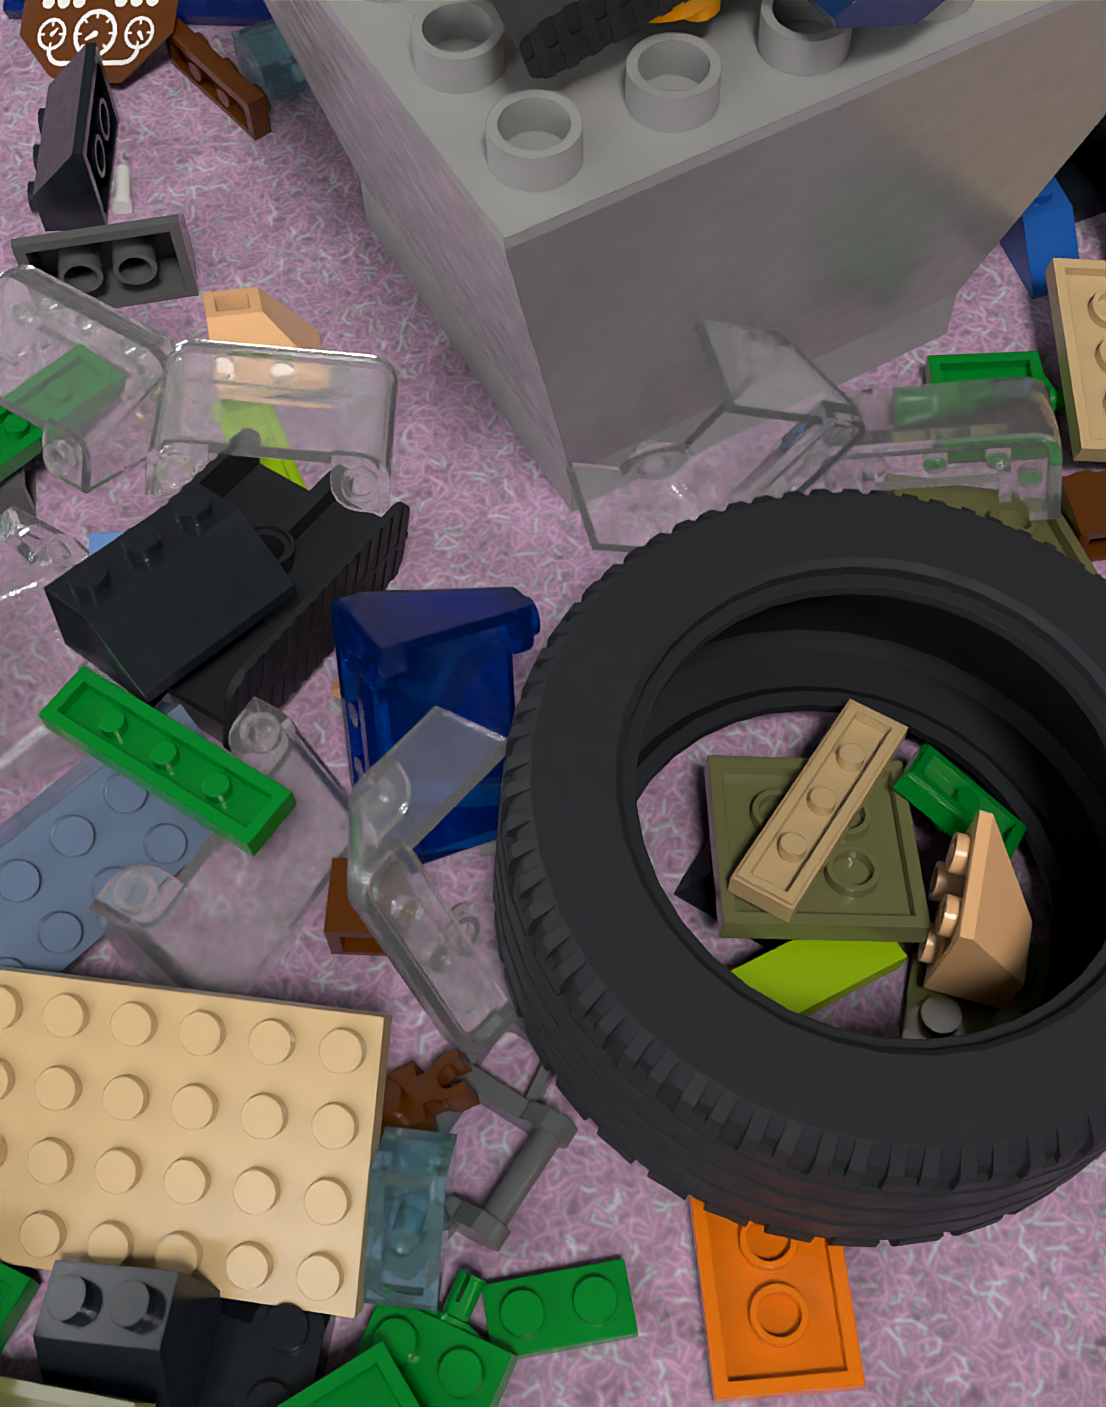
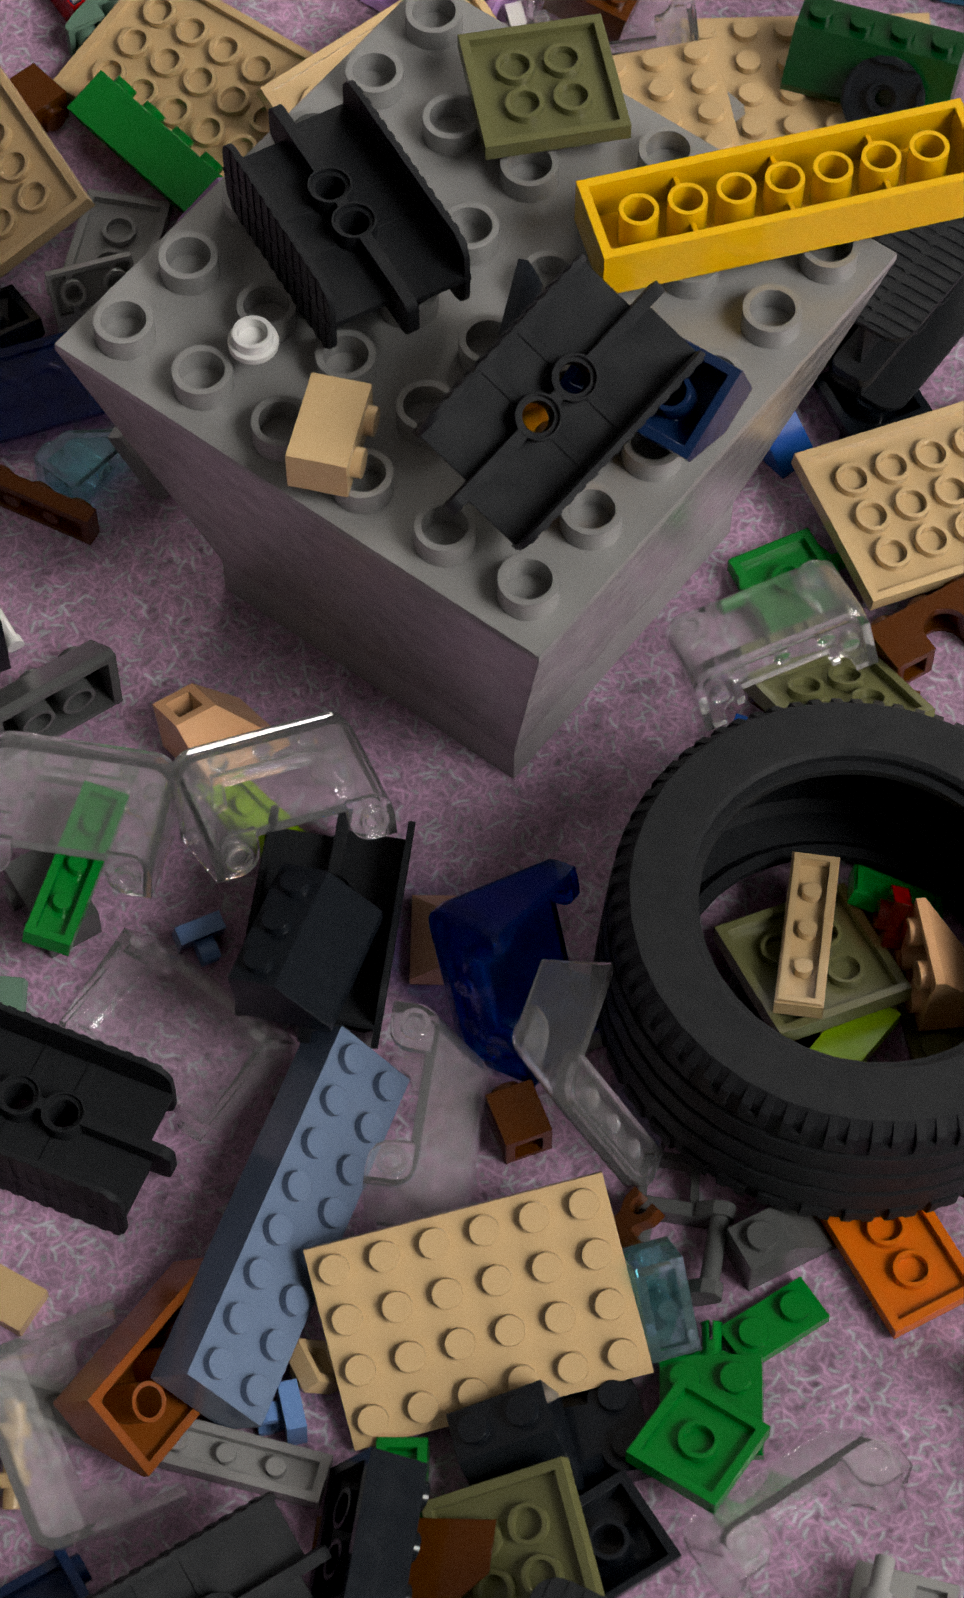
camera: 25 degrees left, 0 degrees up
(169, 760) = (364, 1064): green plate -> none
(609, 1201) = (774, 1244): none -> dark grey slope
(769, 436) = (633, 711): clear windscreen -> none
(941, 822) = (891, 916): none -> clear red plate

